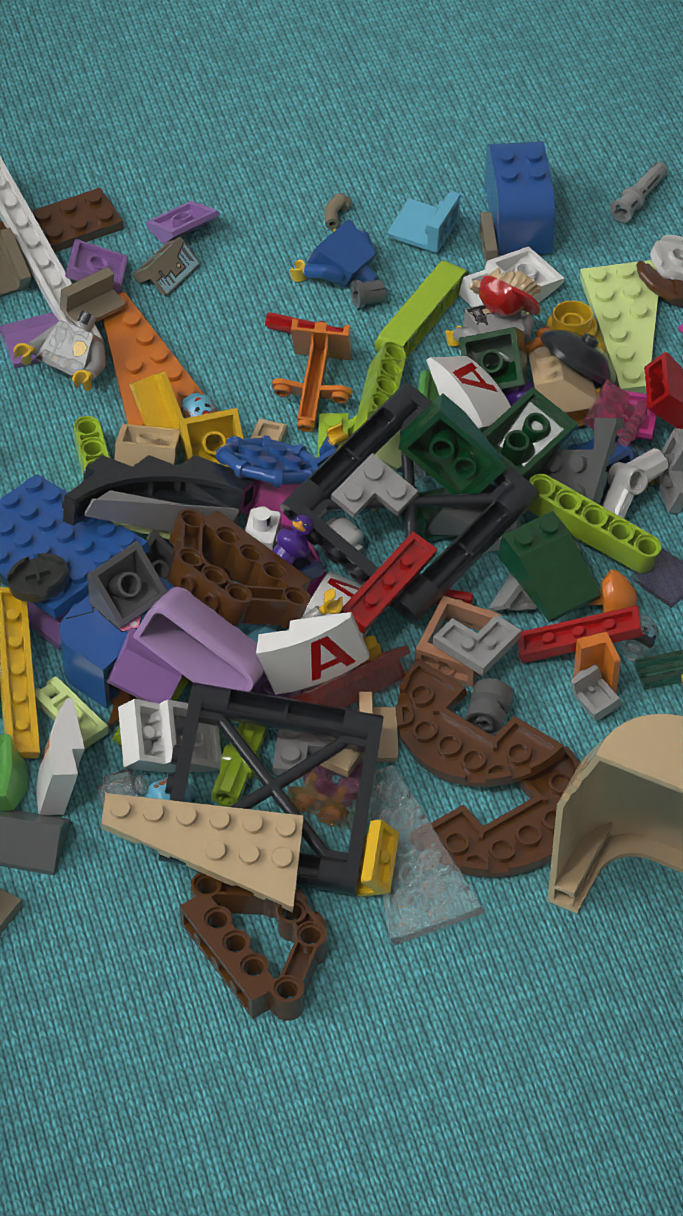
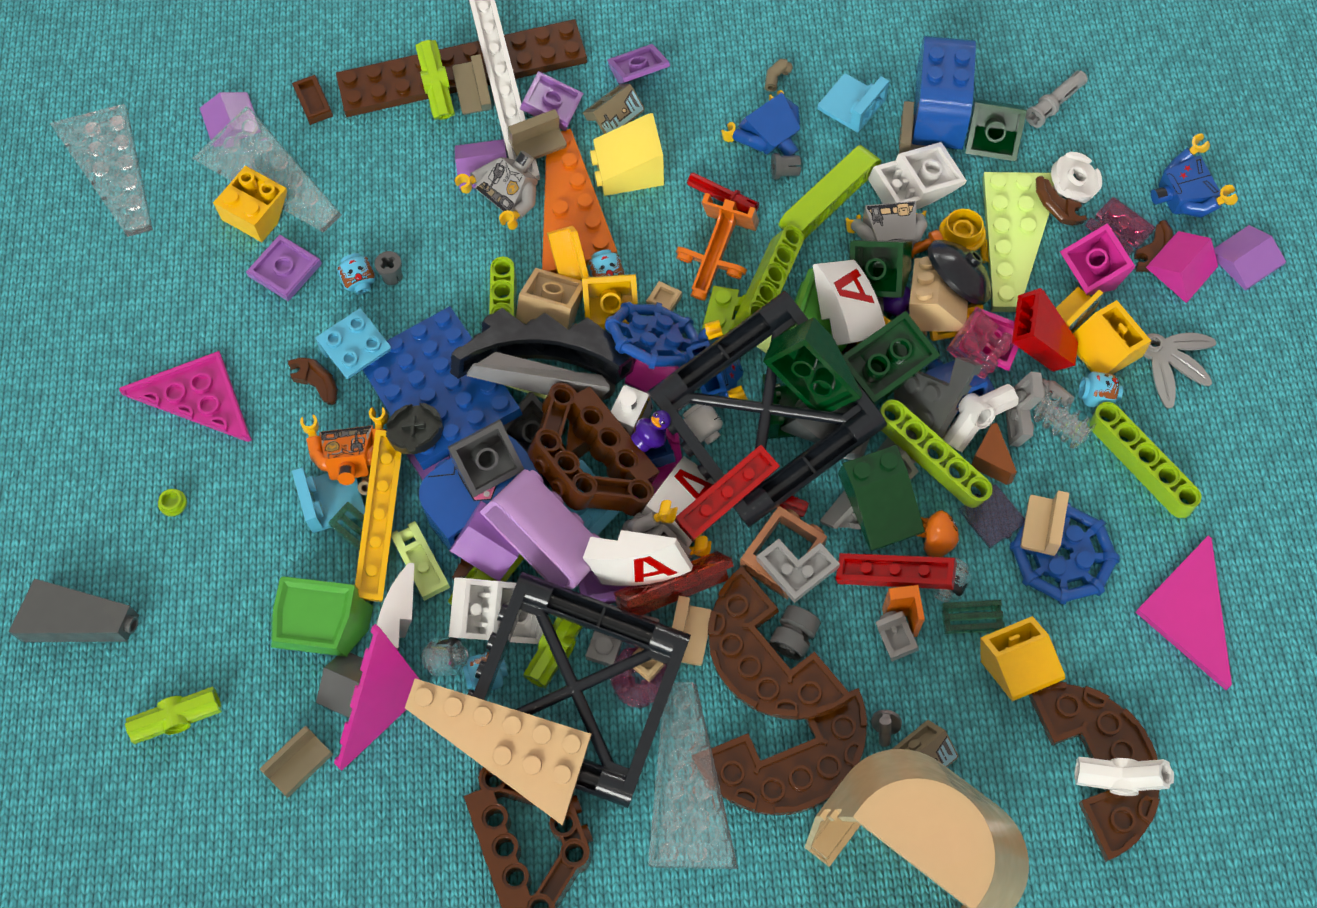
camera: 15 degrees right, 15 degrees up
(66, 831) = (377, 698): none -> dark pink tile
(198, 306) = (629, 157): none -> light yellow slope
(328, 809) = (603, 706): clear orange plate -> none
(372, 481) = (734, 385): light grey plate -> none
(377, 860) = (654, 782): yellow panel -> none
(507, 293) = (905, 201): red hair -> none
(583, 228) = (995, 129): none -> dark green slope
(658, 520) = (994, 458): none -> dark orange slope

